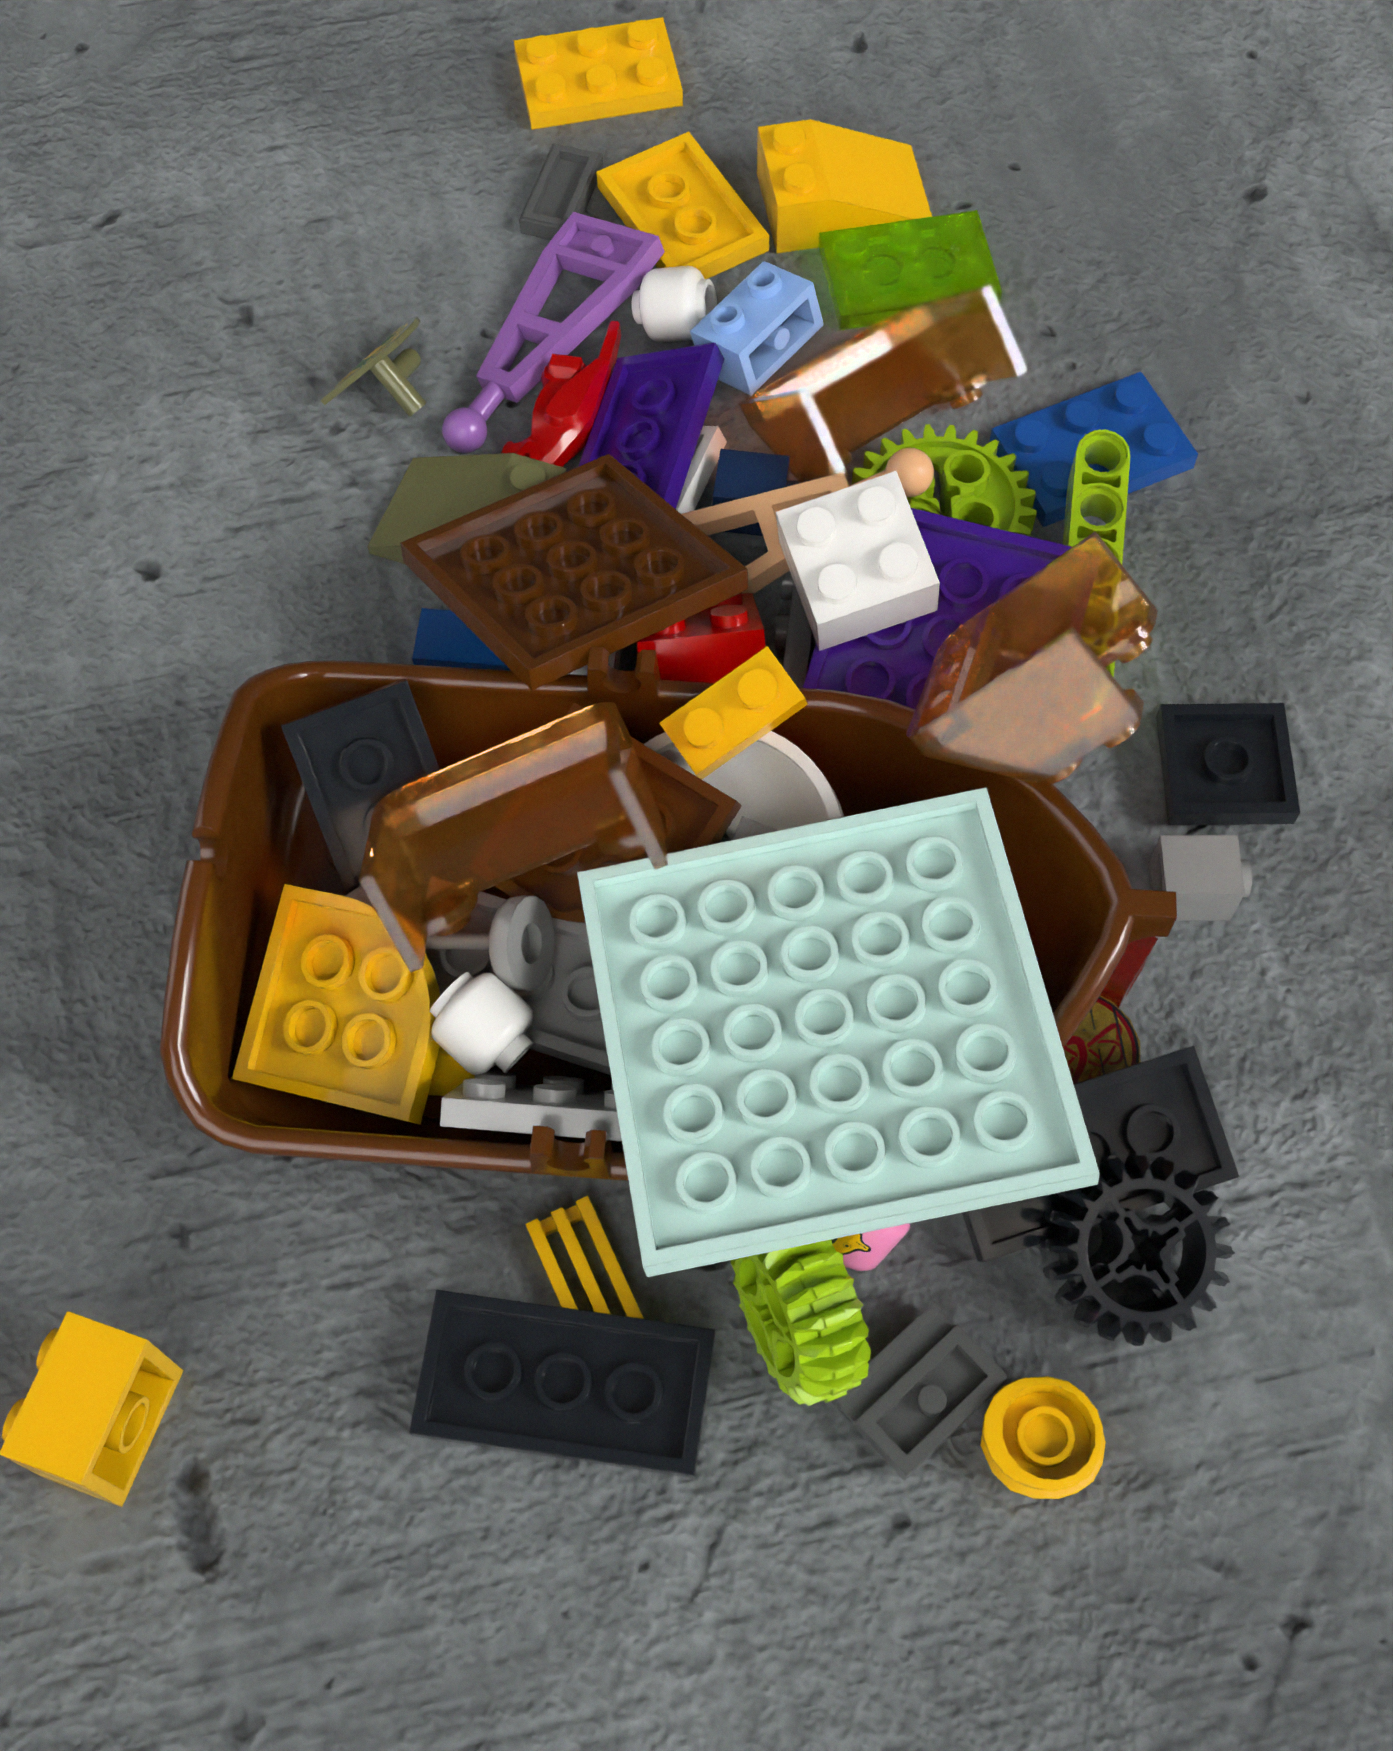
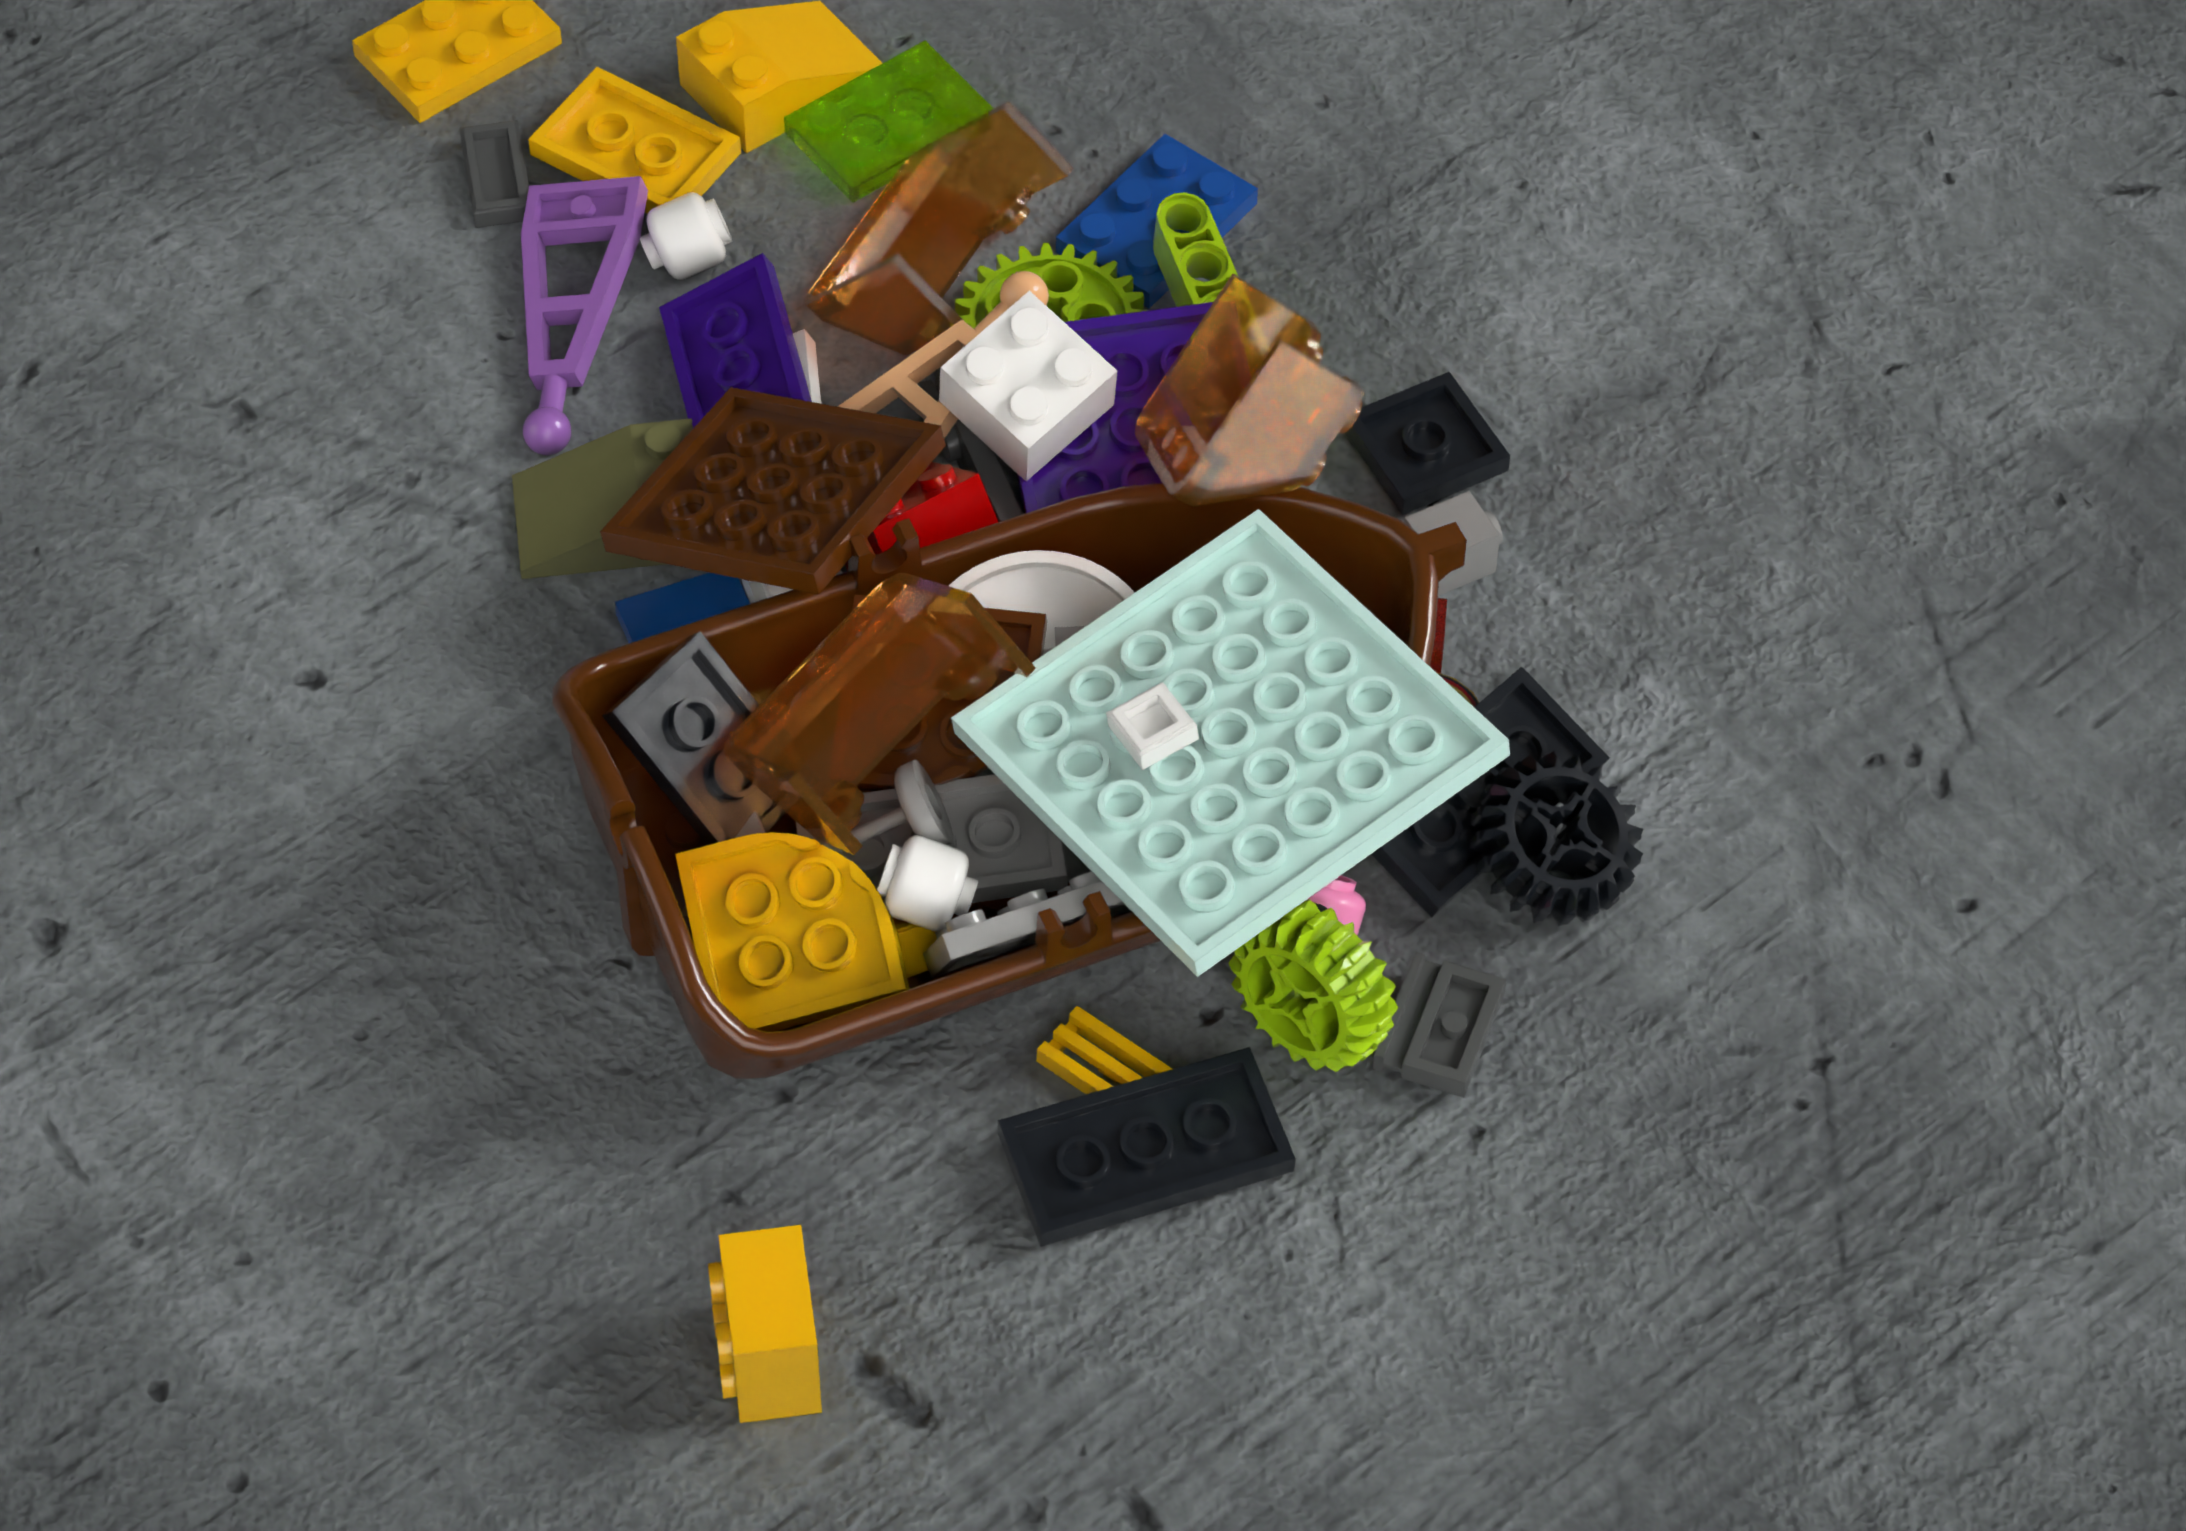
camera: 30 degrees left, 10 degrees down
(390, 373) = (435, 388): olive shield -> none
(568, 403) = (639, 364): red animal -> none
(734, 713) = (1002, 544): yellow plate -> none
(749, 474) = (859, 362): dark blue brick -> none
(749, 978) = (1152, 725): none -> white tile
(760, 325) = (788, 219): light blue brick -> none
(1043, 1438) = (1556, 1015): yellow piece -> none

